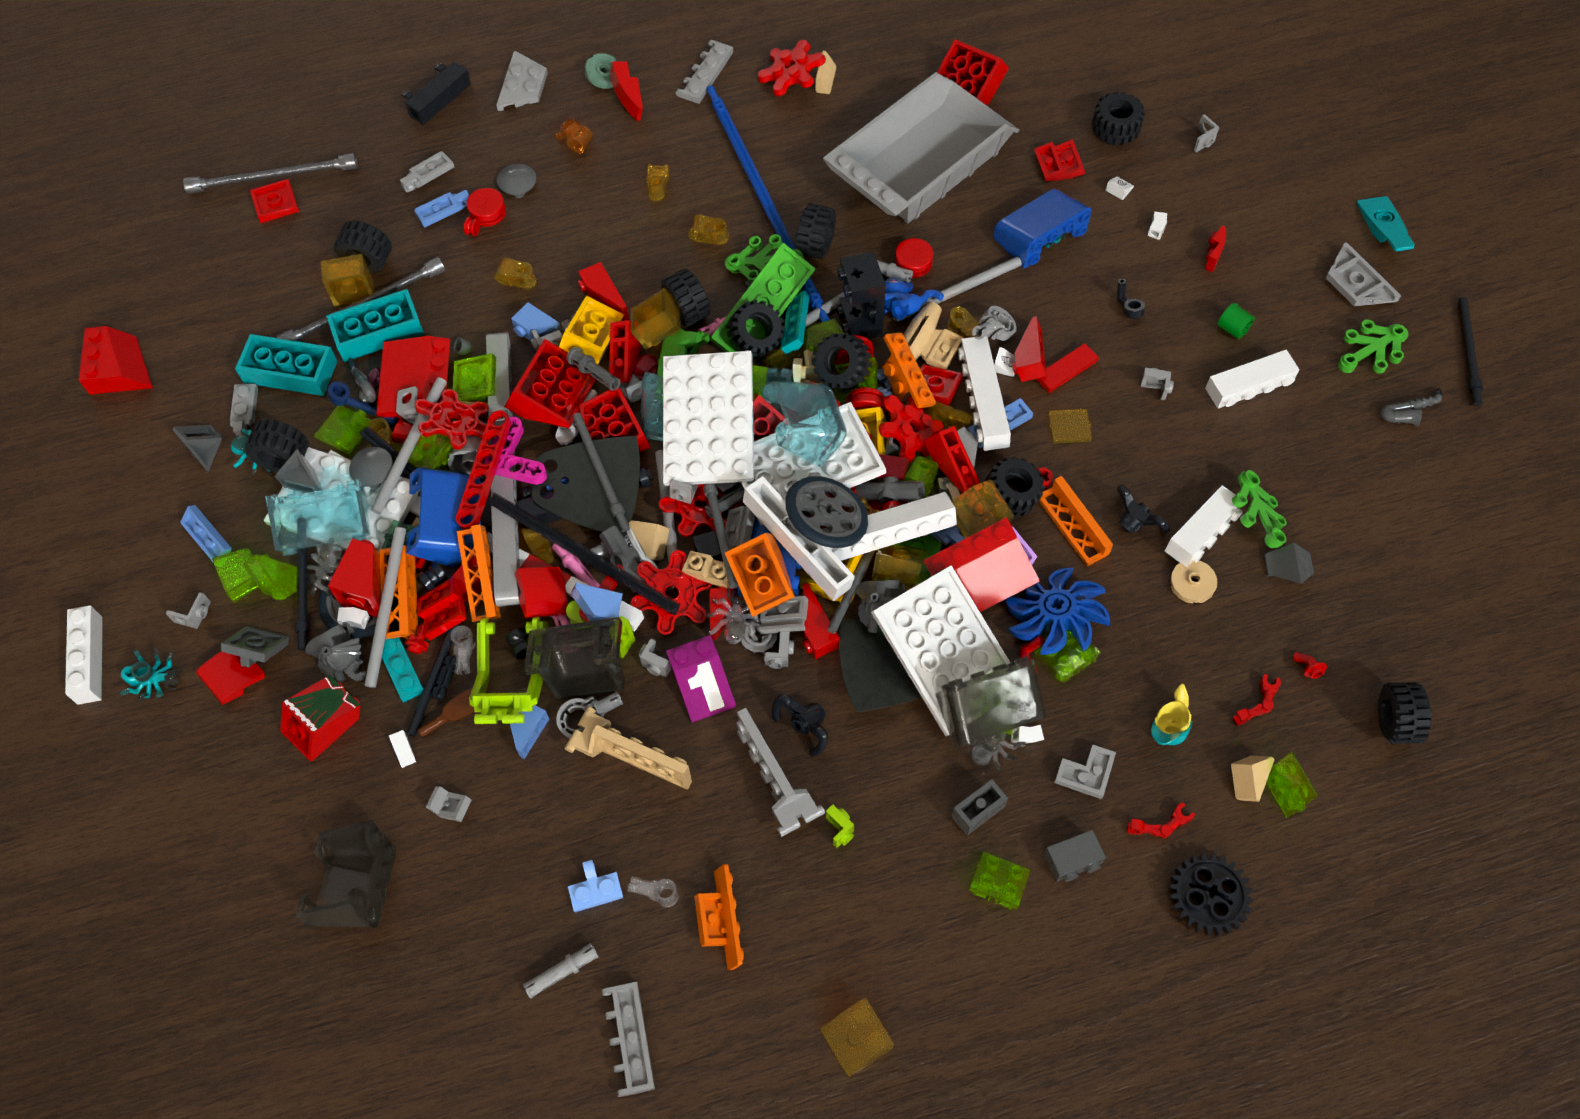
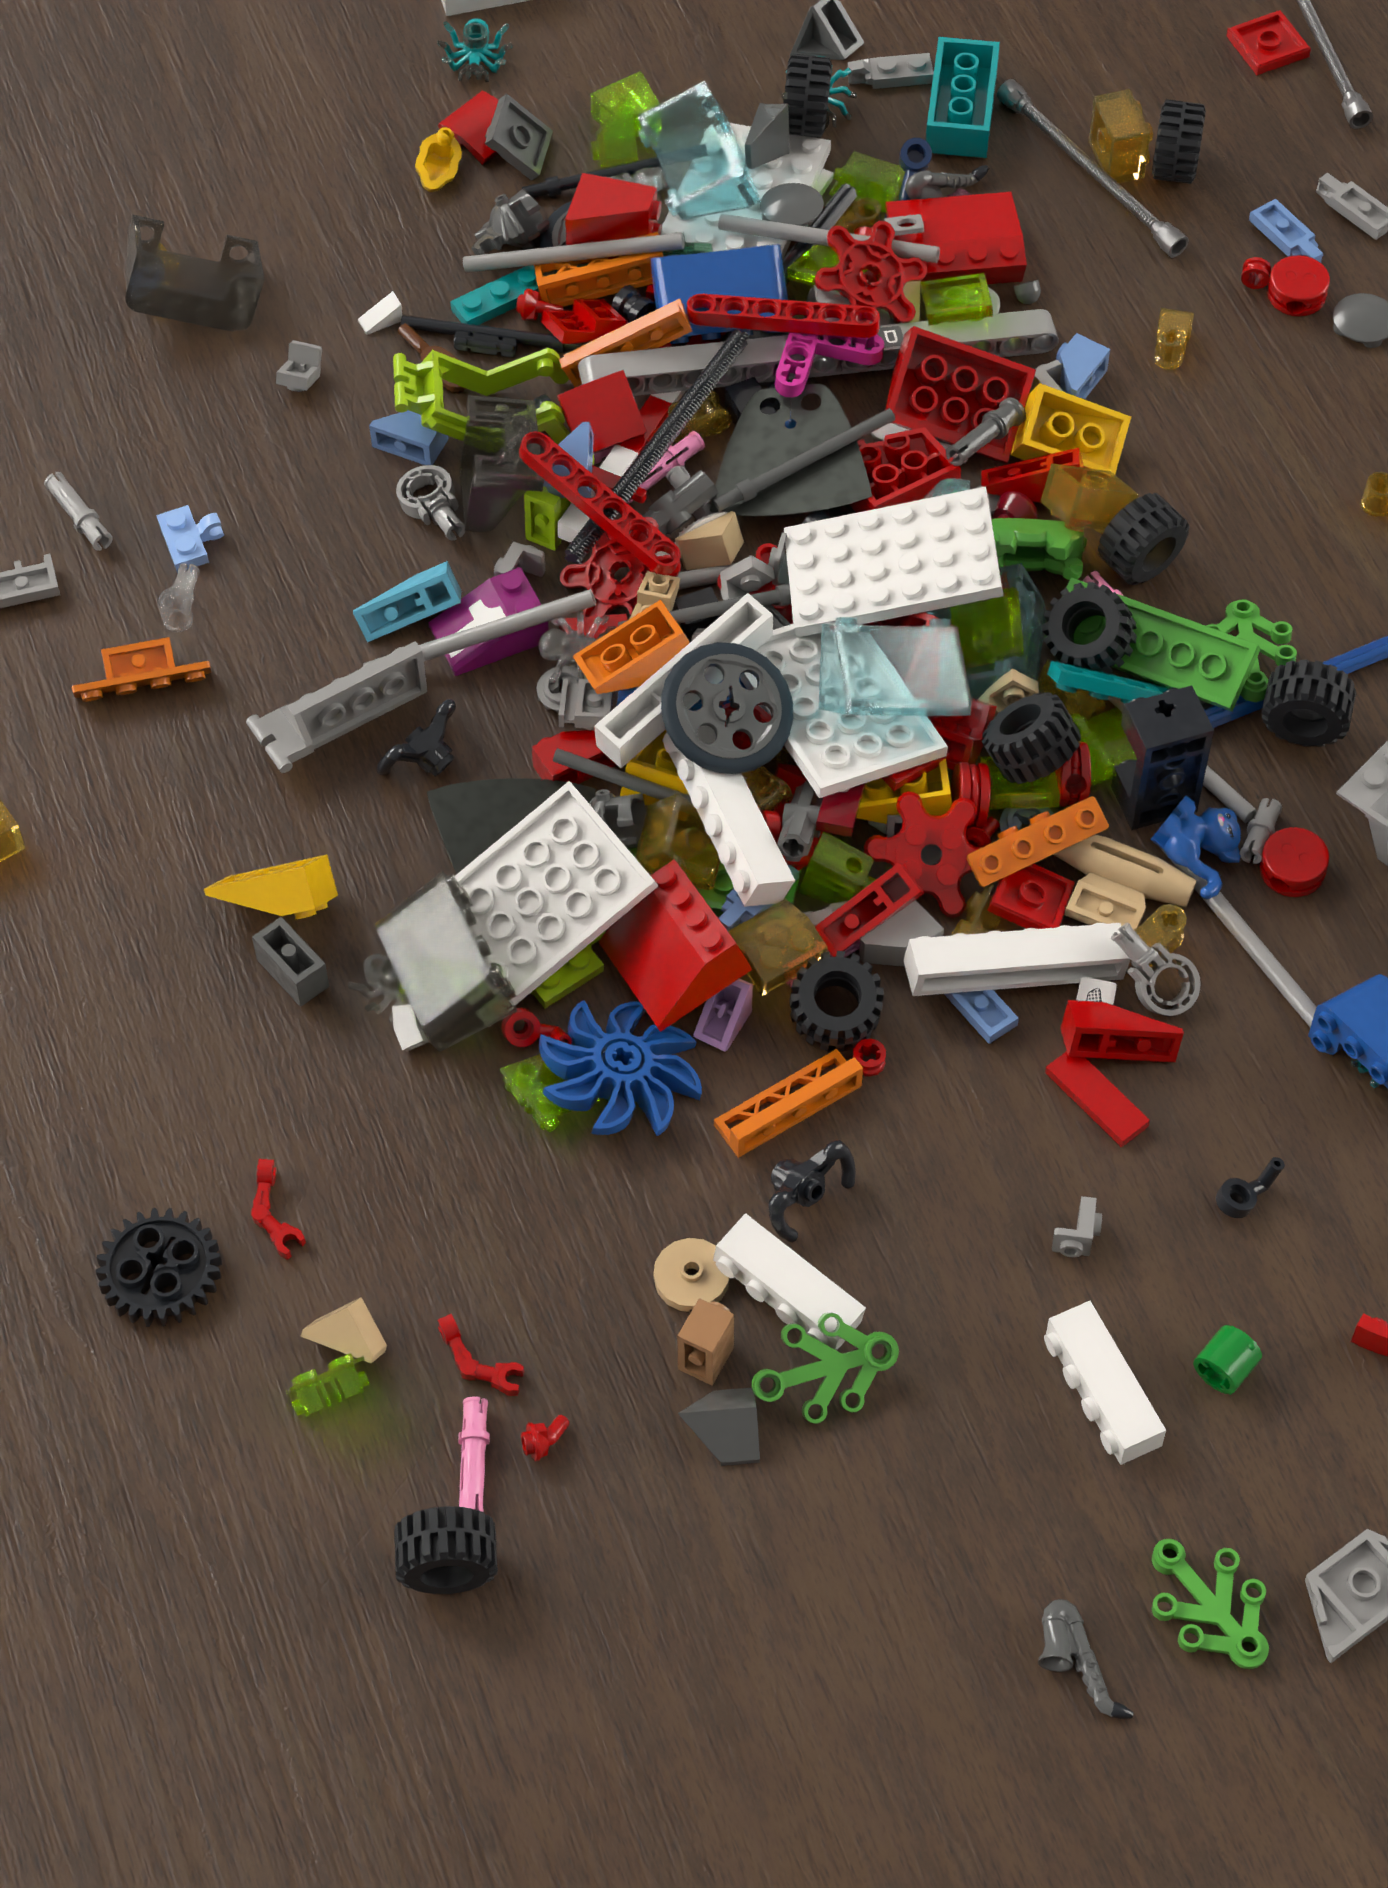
camera: 85 degrees right, 5 degrees down
(196, 614) = (568, 76): light grey bracket -> none
(204, 533) = (685, 65): medium blue plate -> none
(259, 702) = (438, 160): none -> yellow arm
(318, 716) = (420, 218): red slope -> none
(353, 616) = (558, 229): white piece -> none
(369, 324) = (1046, 182): teal brick -> none
(462, 649) = (533, 343): clear pin -> none
(600, 287) = (1163, 441): red slope -> none
(600, 737) = (386, 514): tan hinge -> none
(636, 581) = (594, 506): none -> red beam
(677, 722) = (409, 602): none -> medium azure slope
(695, 510) = (745, 577): none -> light grey bracket
(710, 229) = (1302, 575): clear yellow piece -> none
(721, 679) = (506, 625): none -> light grey piece
(780, 659) = (535, 718): light grey bracket -> none
(840, 820) = (271, 801): lime bracket -> none
(922, 817) = (281, 889): none -> yellow slope
(999, 880) = (186, 996): clear neon green hinge -> none
(1070, 426) = (981, 1102): clear yellow piece -> none
(1074, 856) = (220, 1089): dark grey brick -> none
(1089, 778) = (345, 1115): light grey plate -> none
(1173, 720) = (429, 1221): light yellow hair -> none
(1249, 567) = (706, 1341): none -> medium nougat brick
(1320, 704) = (473, 1442): none -> bright pink pin
(1475, 384) = (1146, 1780): black bar -> none

